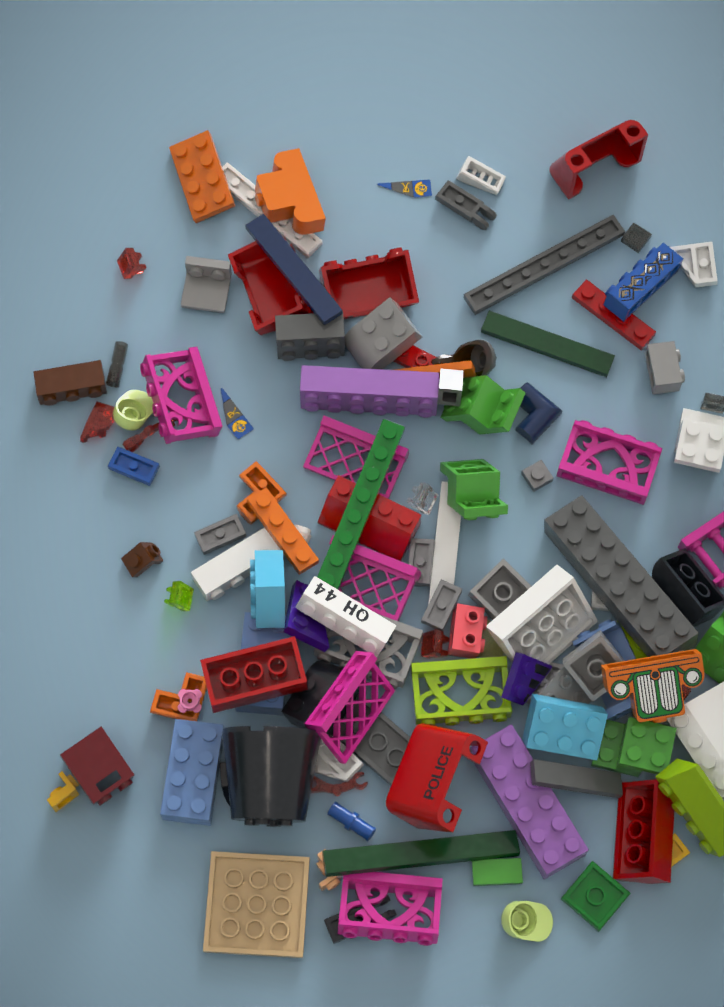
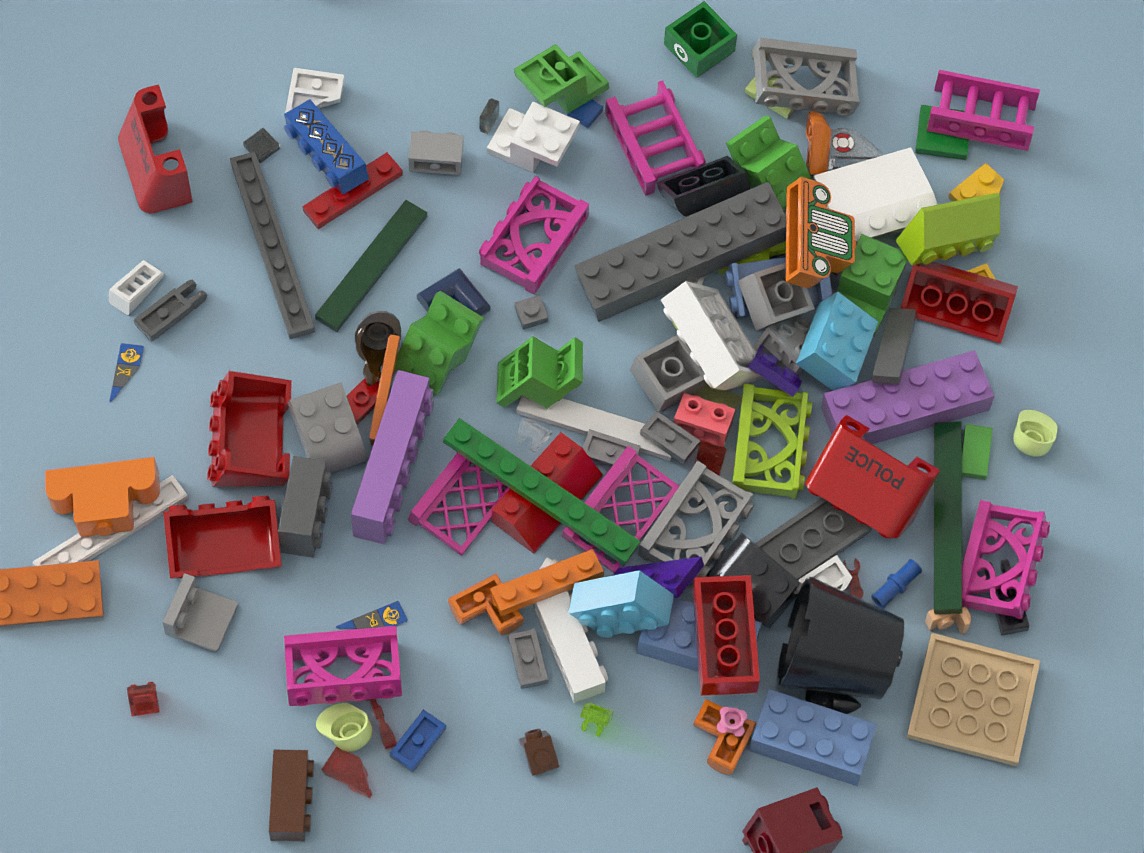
camera: 80 degrees left, 5 degrees down
(116, 366) = (272, 737): clear smoke piece -> none
(294, 269) = (223, 497): dark blue tile -> none
(341, 694) = (774, 545): dark pink fence -> none
(345, 616) = (670, 530): white brick -> none
(450, 387) = (417, 361): brick -> none
(595, 896) = (1016, 363): green tile -> none

